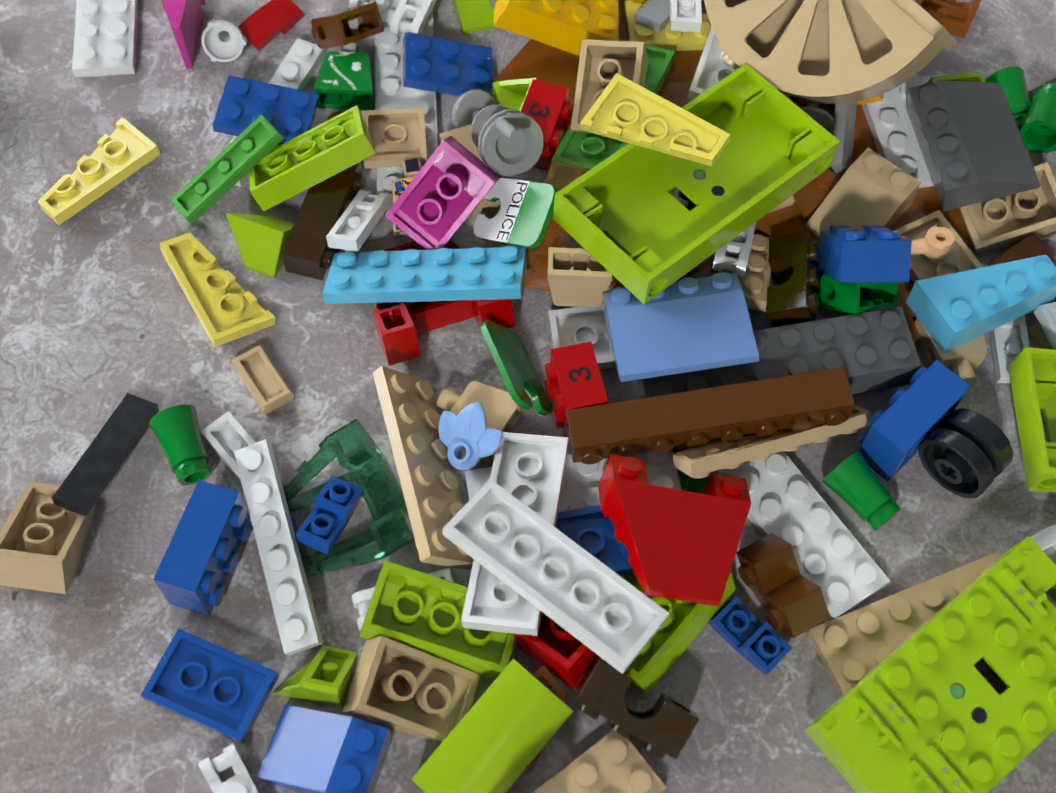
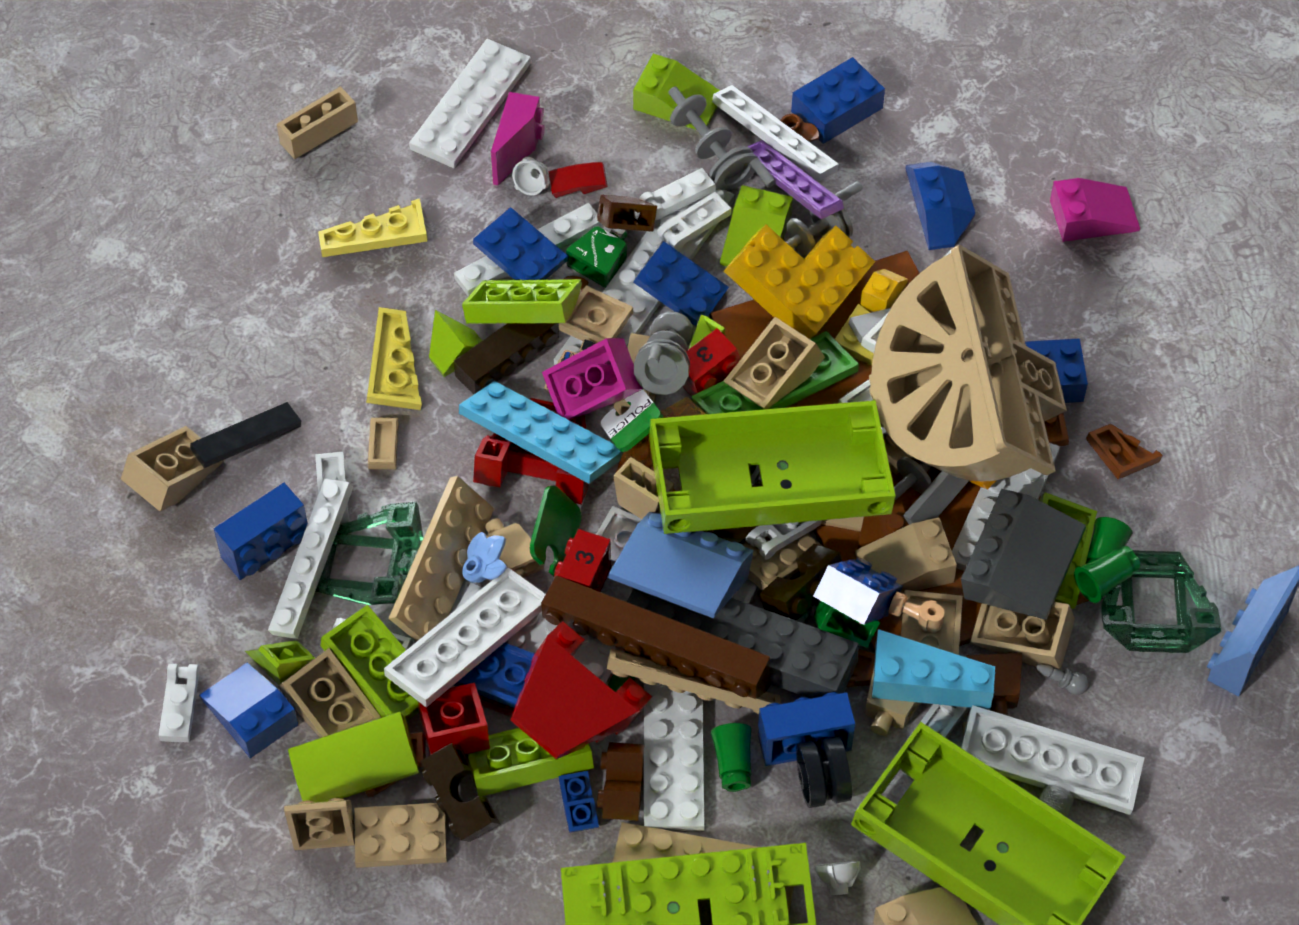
camera: 35 degrees right, 5 degrees down
(182, 443) = (298, 455): green plant -> none
(210, 686) = (209, 621): blue plate -> none
(226, 169) = (461, 278): bright green tile -> none
(330, 514) = (361, 557): blue slope -> none
(359, 220) = (524, 366): white plate -> none
(556, 575) = (462, 673): white plate -> none
(649, 121) = (758, 404): light yellow wing -> none

